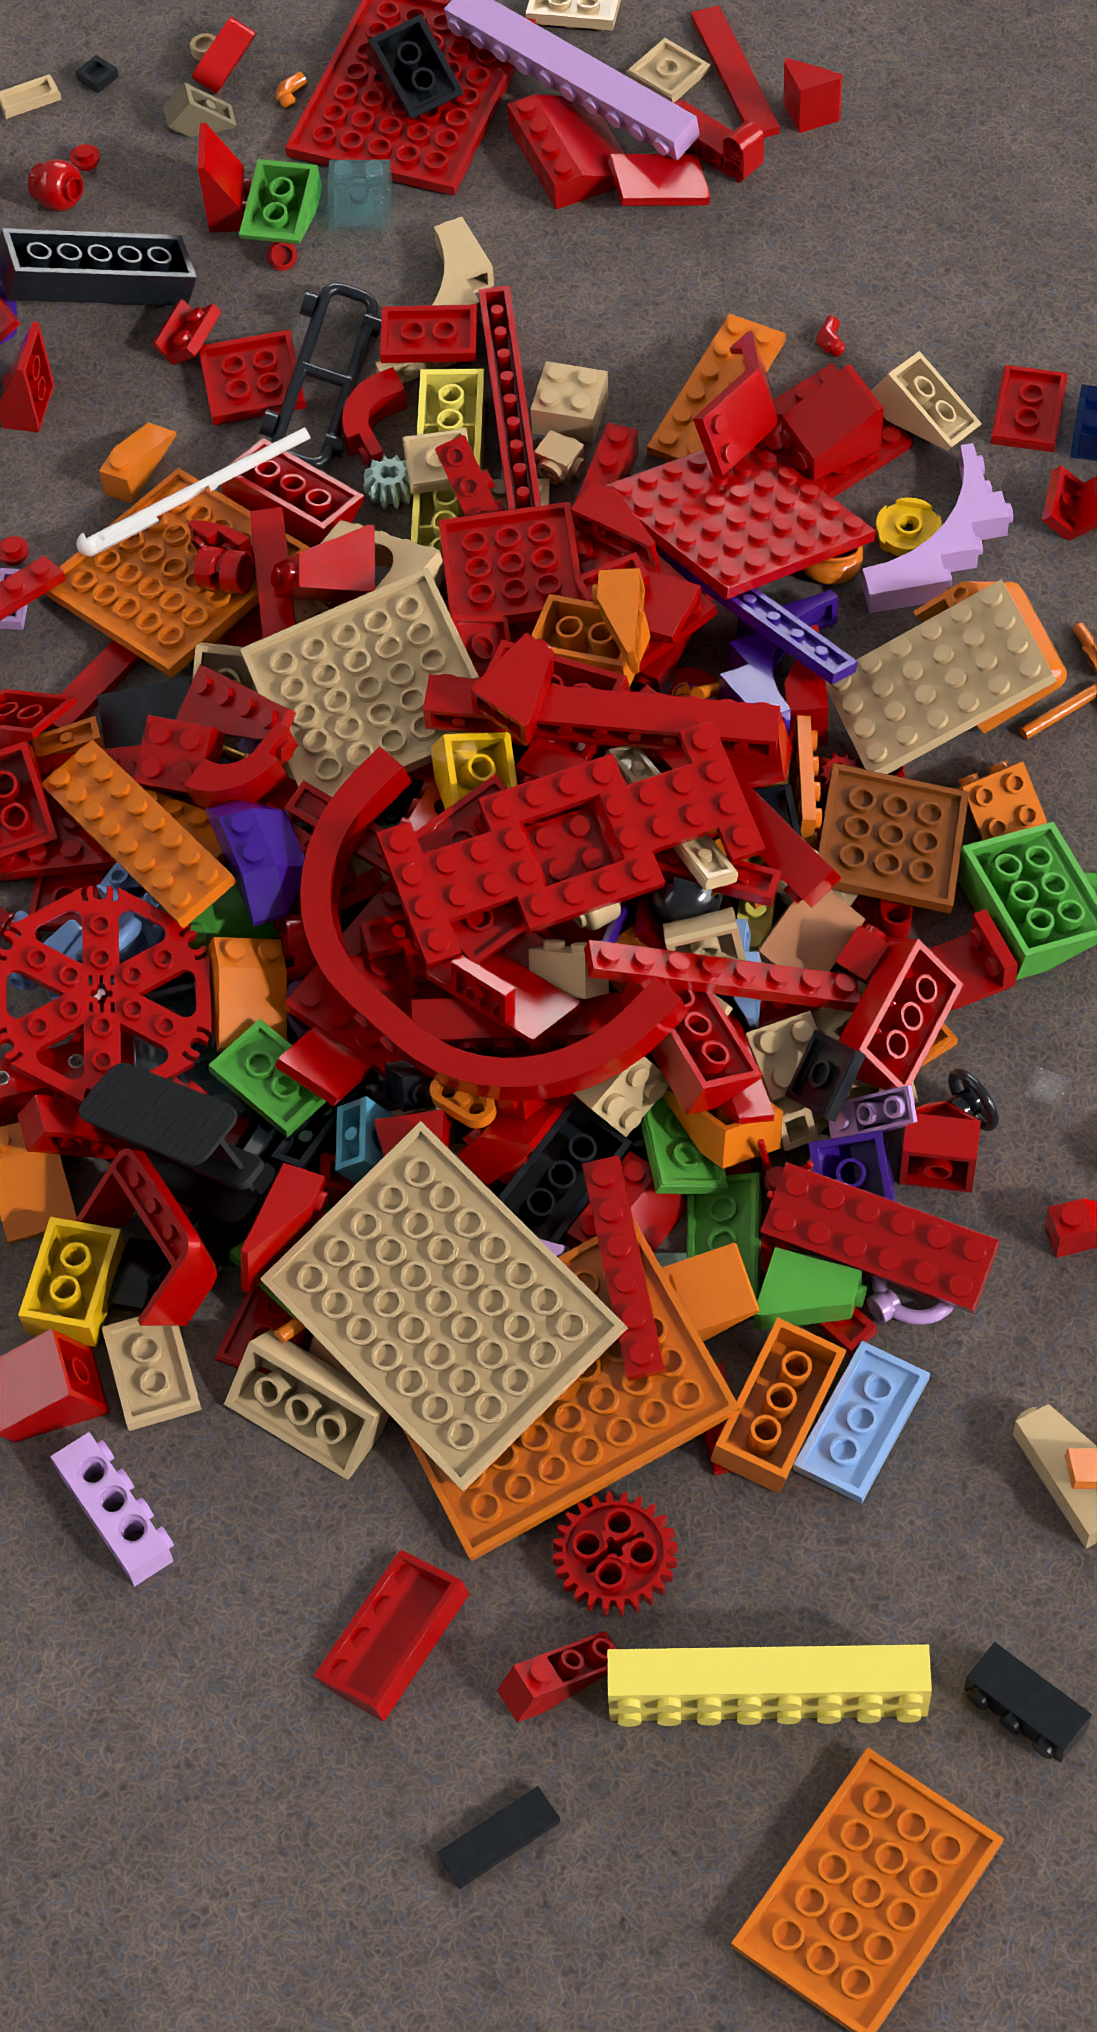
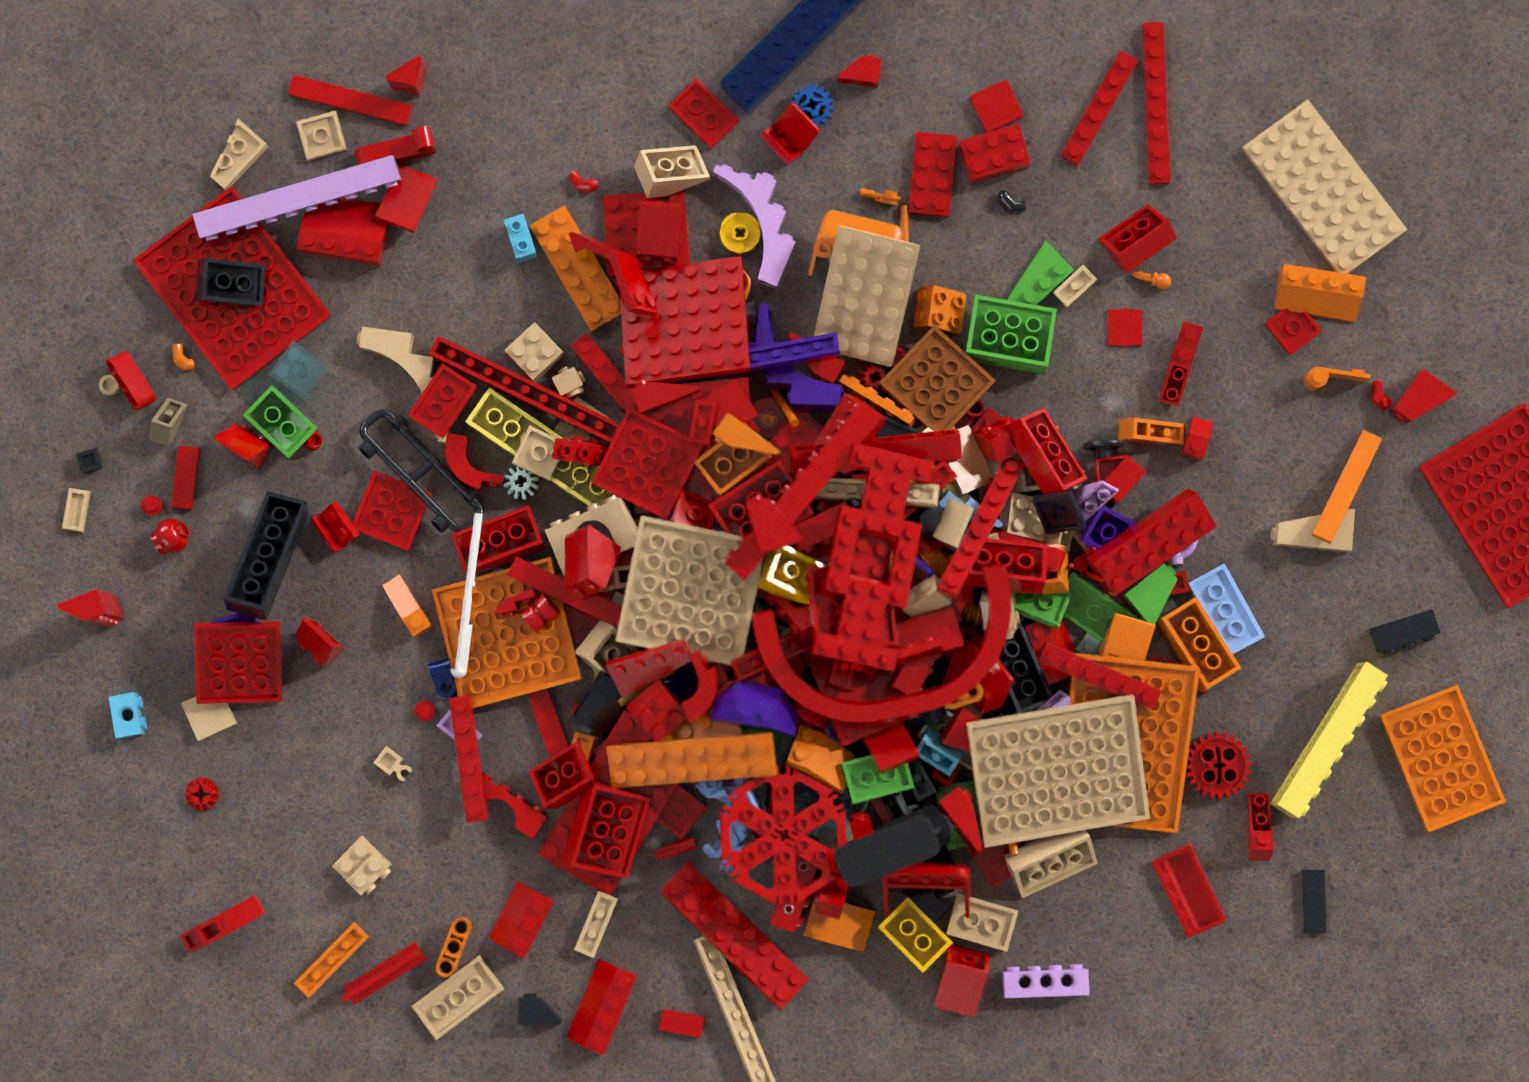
camera: 65 degrees left, 25 degrees up
(64, 538) = (441, 675): none -> clear blue piece
(143, 169) = (185, 477): none -> red tile
(704, 310) = (520, 238): none -> medium azure brick
(978, 961) = (1022, 390): red bracket -> none
(1044, 1155) = (1150, 431): none -> orange slope

